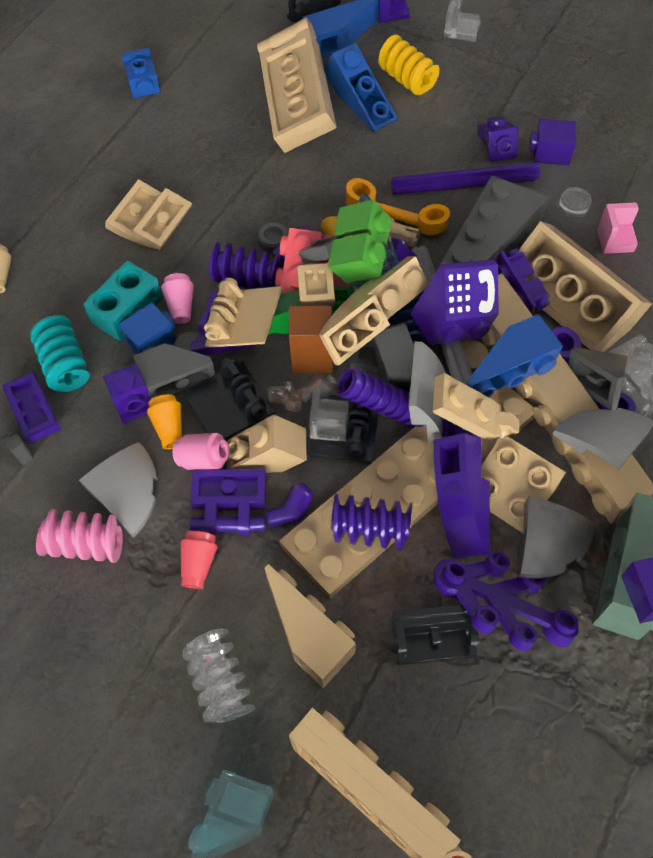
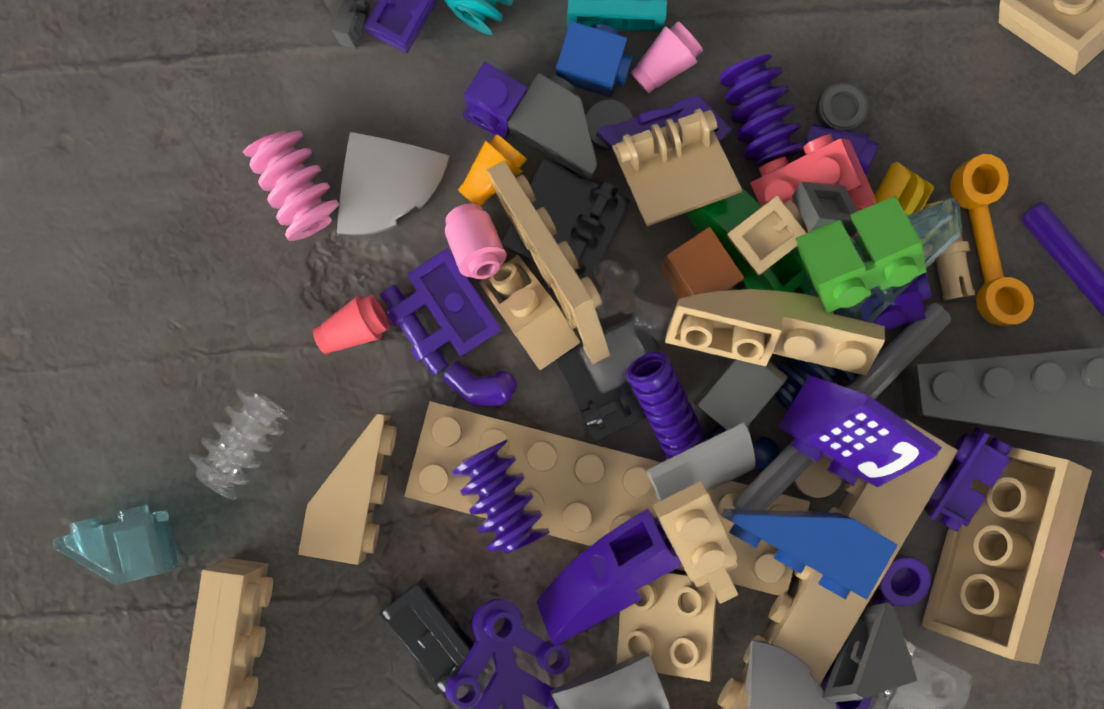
camera: 60 degrees right, 25 degrees up
(246, 402) = (553, 260): none -> tan wing

